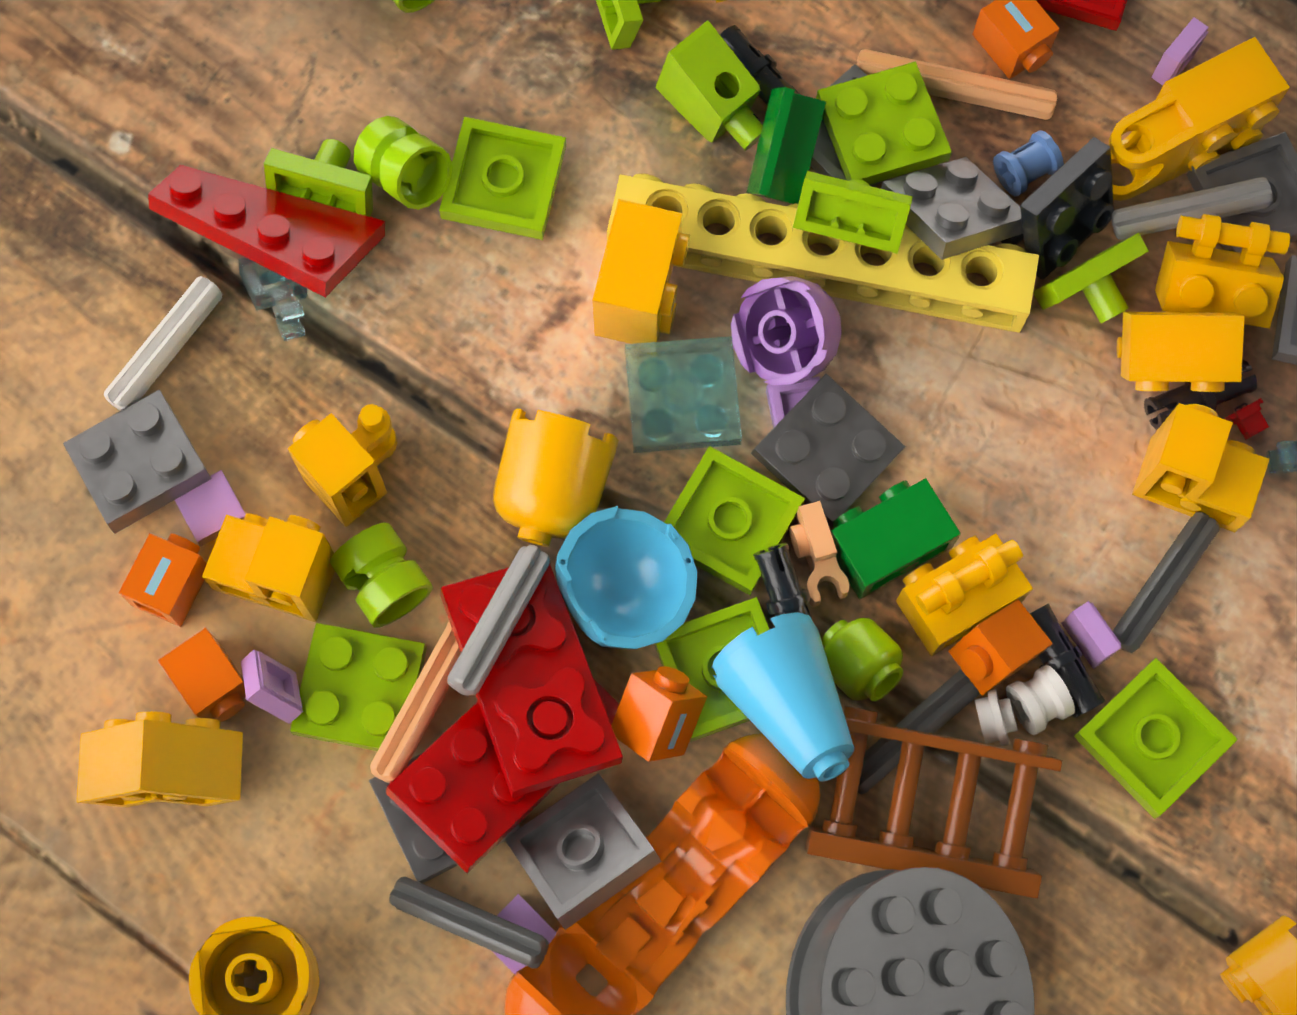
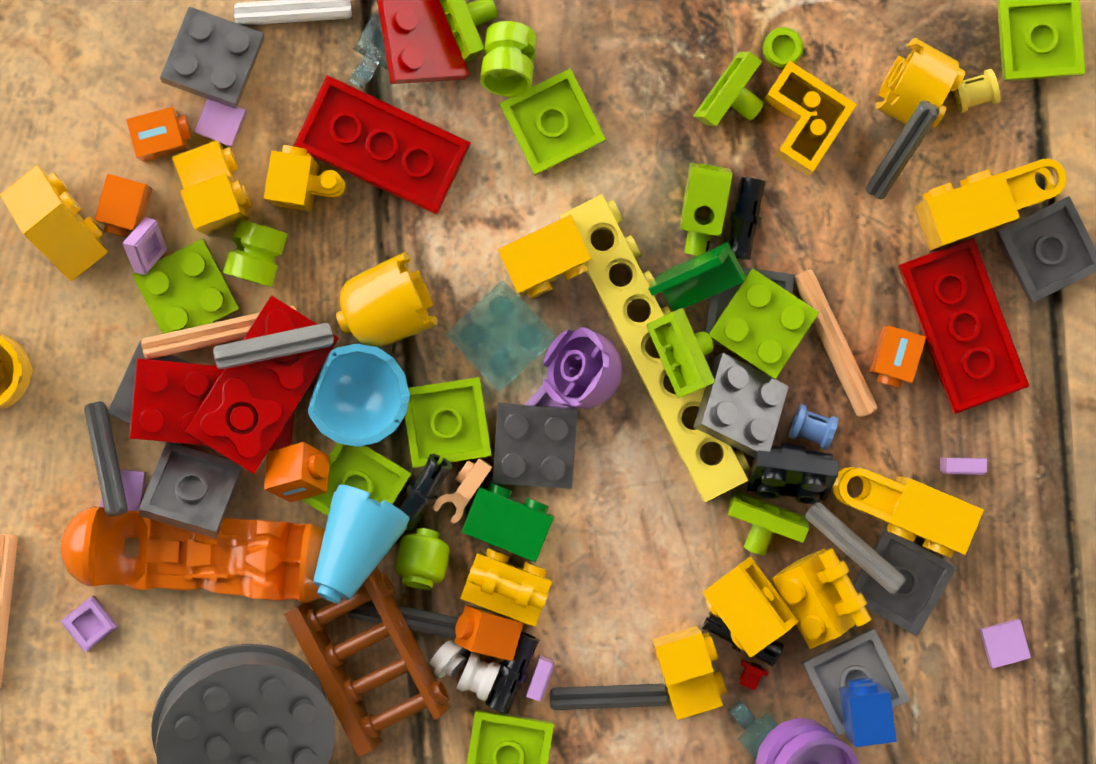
camera: 55 degrees right, 15 degrees up
(384, 356) = (382, 145): none -> red piece

